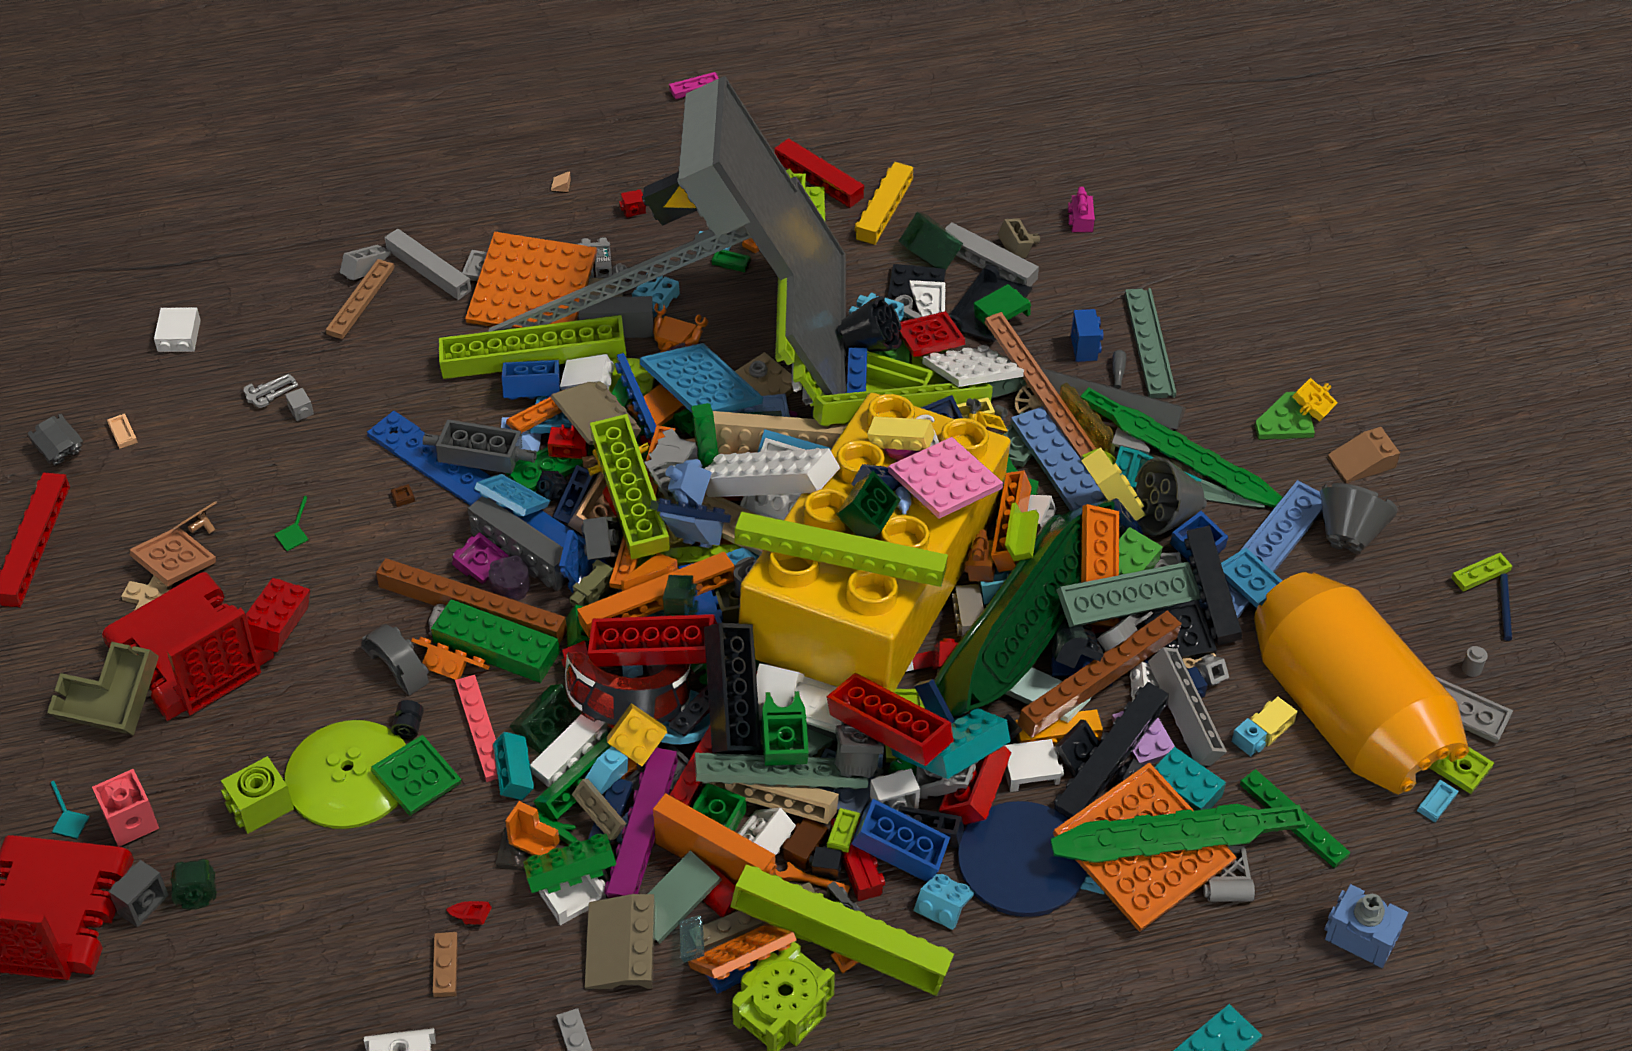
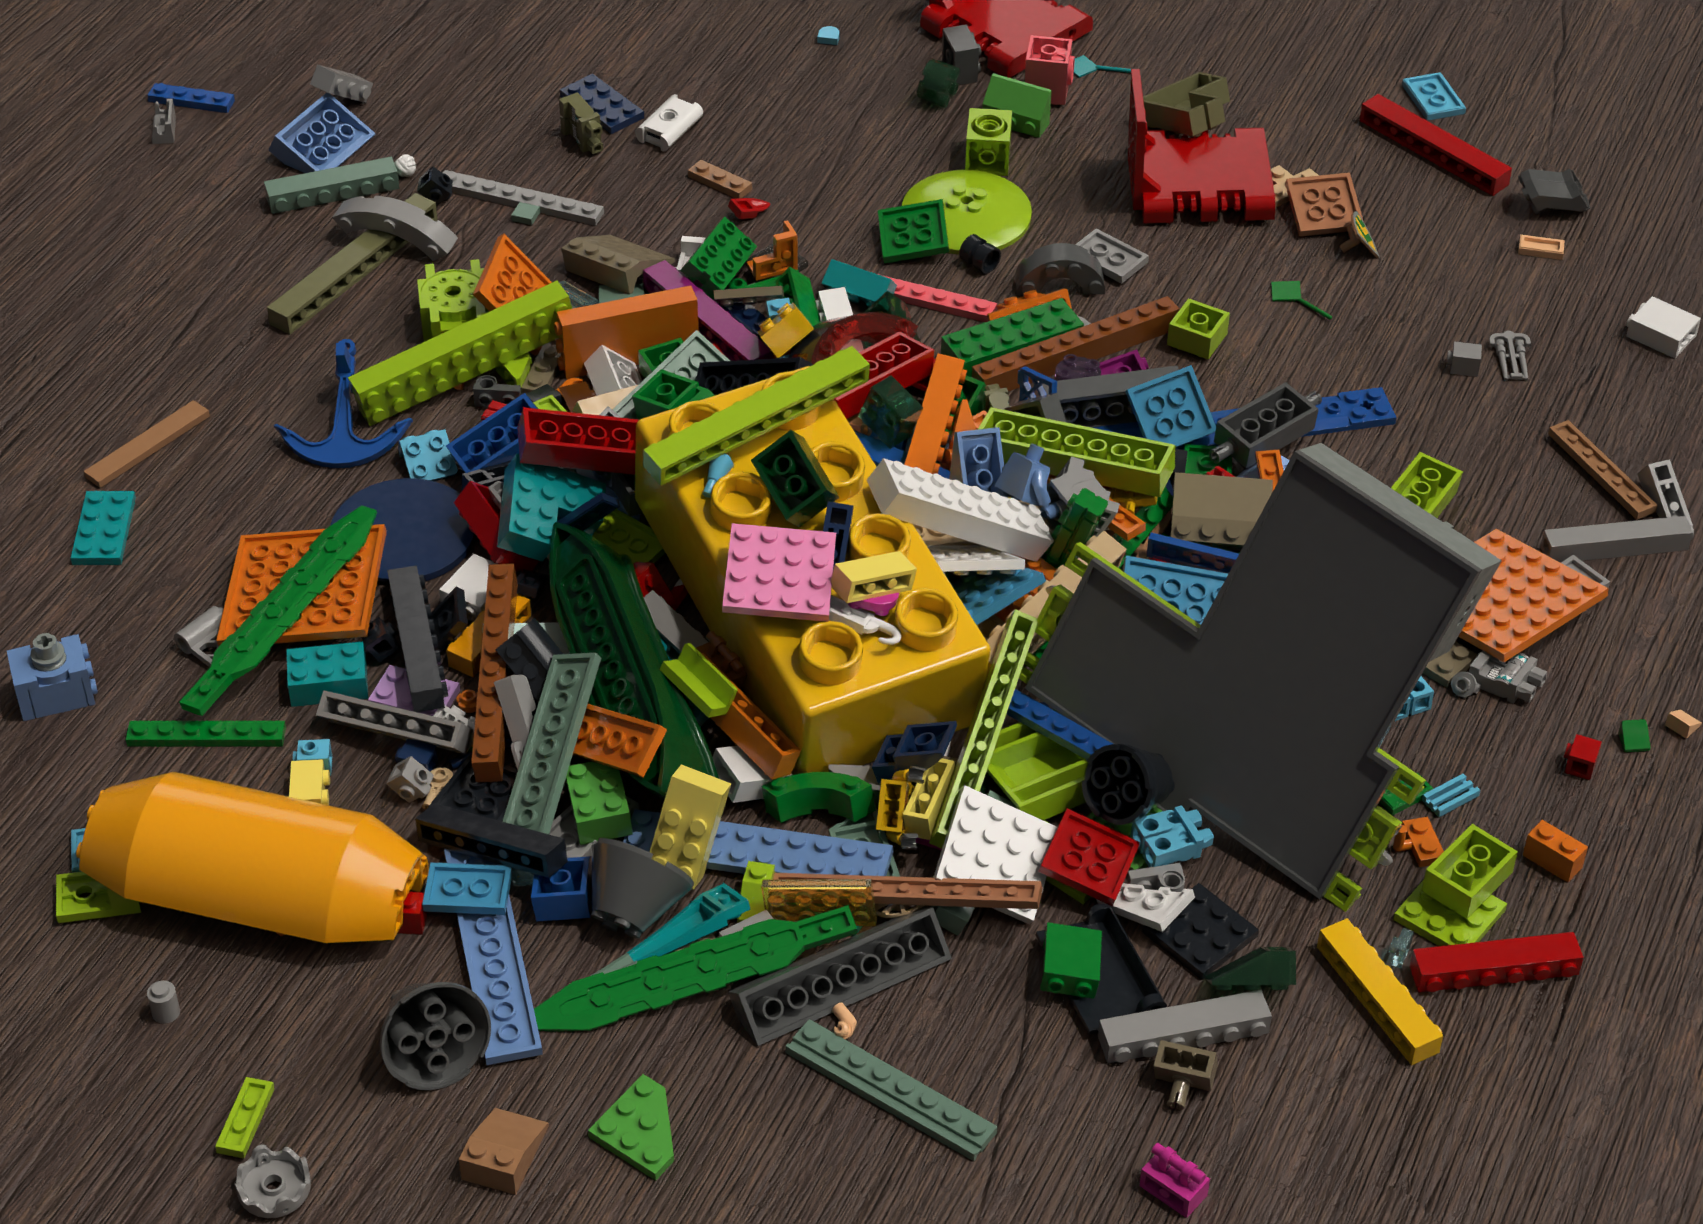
camera: 130 degrees right, 5 degrees down
(160, 1034) = (828, 35): none -> medium azure tile
(189, 810) = (1027, 101): none -> bright green slope
(276, 613) = (1177, 218): red brick -> none
(338, 649) = (1116, 257): none -> light grey plate
(392, 542) = (1198, 328): none -> lime brick
(403, 495) = (1268, 376): reddish brown tile -> none
(592, 195) = (1634, 735): none -> green slope
(684, 509) = (995, 456): dark blue plate -> none
(847, 207) = (1400, 947): none -> clear light blue plate
(988, 960) = (342, 447): none -> blue piece
(1086, 335) = (949, 1007): blue brick -> none
(1118, 365) = (882, 1025): dark grey piece -> none
(1118, 705) = (467, 701): none -> orange plate
(1125, 517) = (645, 820): dark blue tile -> none
(1134, 380) = (846, 1021): none -> light nougat arm
(1315, 399) = (626, 1159): yellow plate -> none
(1478, 713) = (131, 952): light grey plate -> none
(1500, 518) = (265, 1168): none -> light grey plate
(1506, 615) = (185, 1104): dark blue bar -> none

